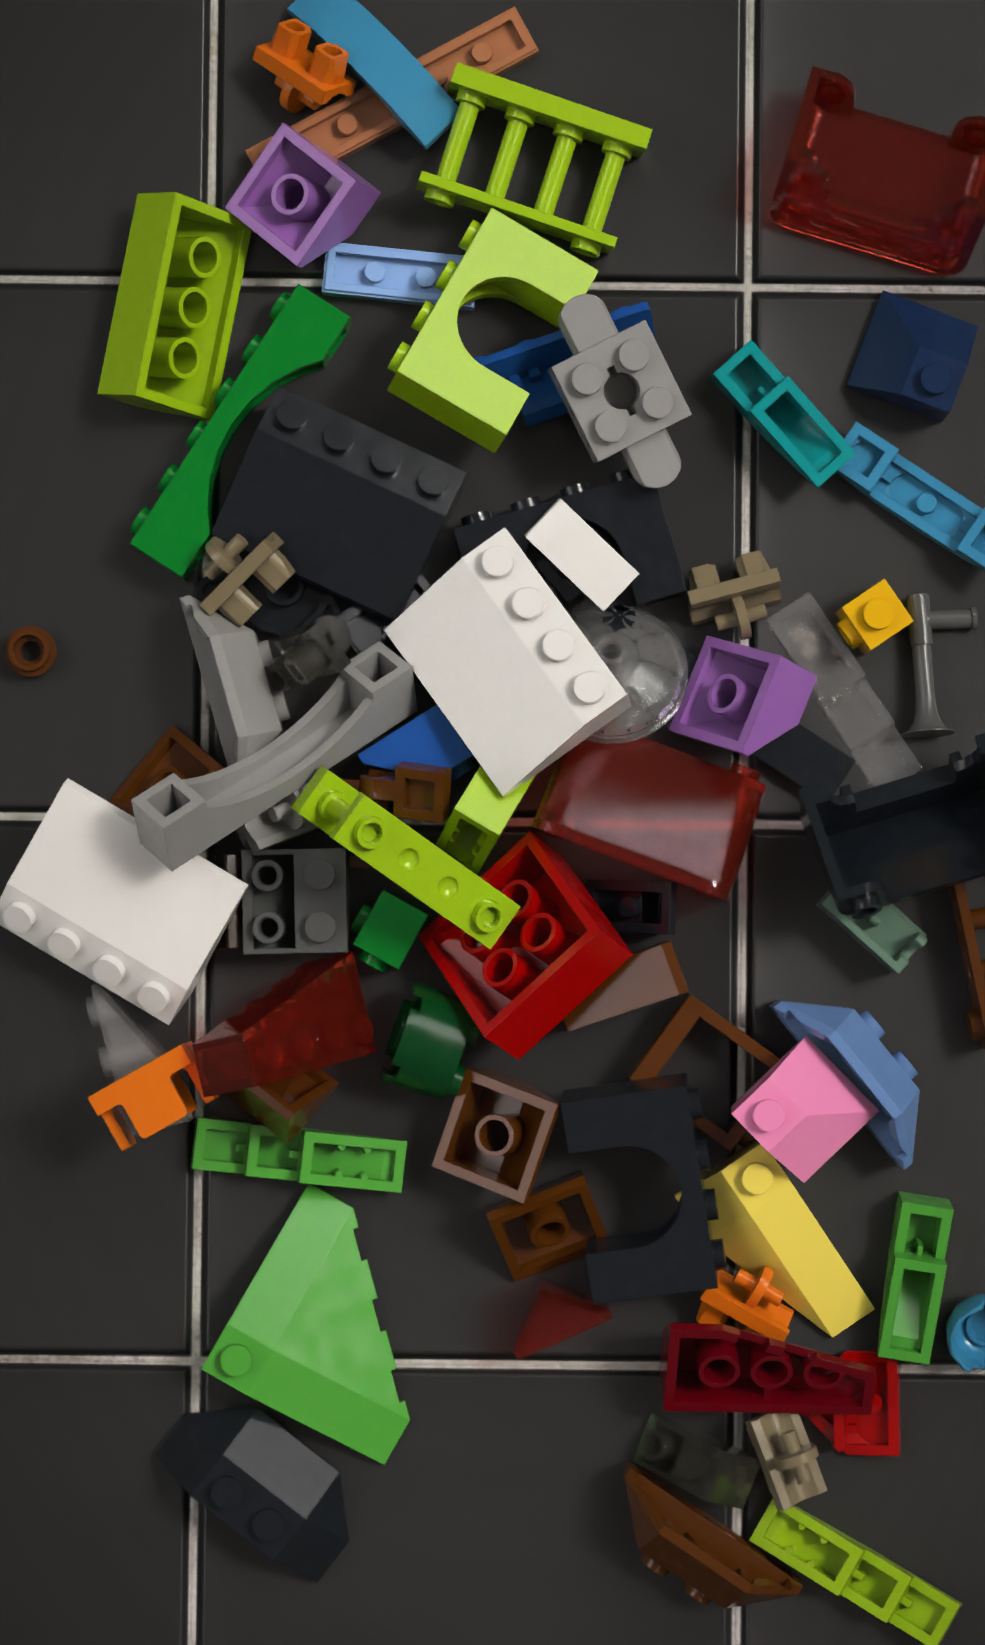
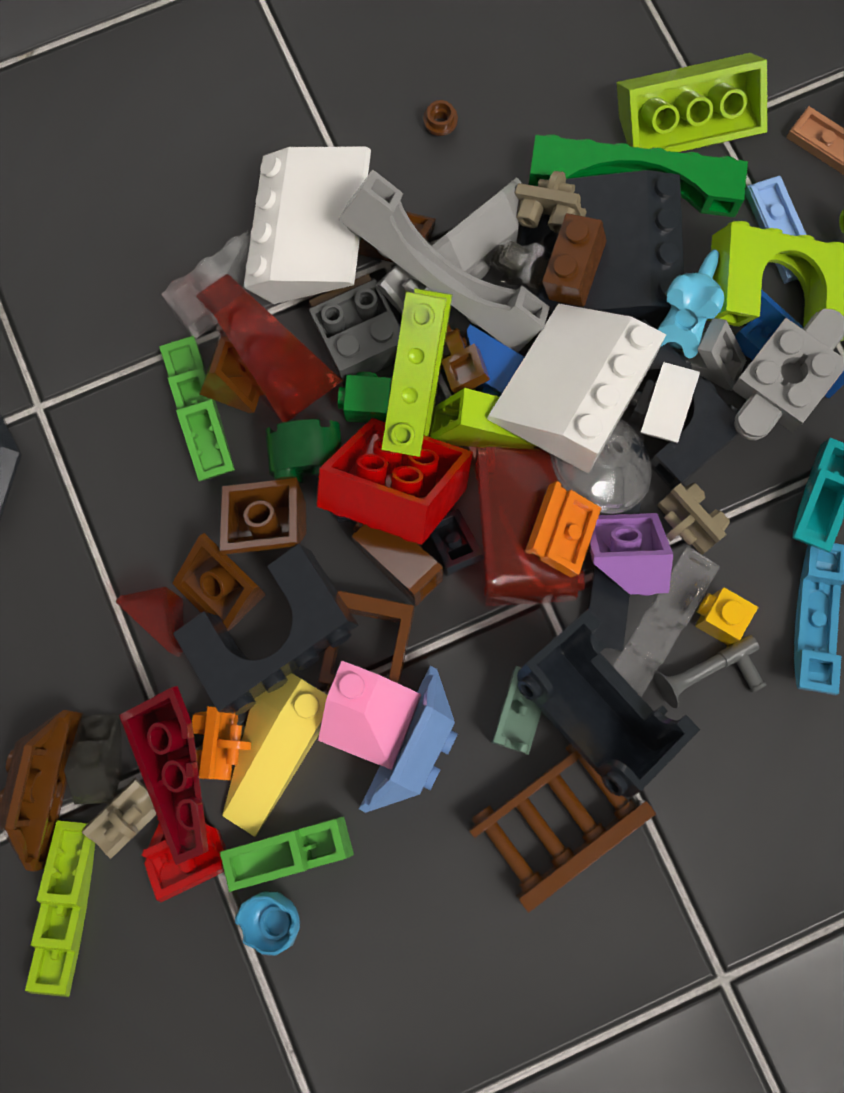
camera: 70 degrees right, 10 degrees down
(150, 1095) = (183, 273): orange panel -> none
(301, 197) = (801, 144): medium lavender slope -> none
(312, 1335) = (79, 465): bright green slope -> none
(342, 585) = (574, 259): none -> reddish brown brick
(474, 468) = (692, 301): none -> medium azure animal
(540, 457) = (719, 355): none -> light grey slope
(686, 770) = (563, 529): none -> orange plate

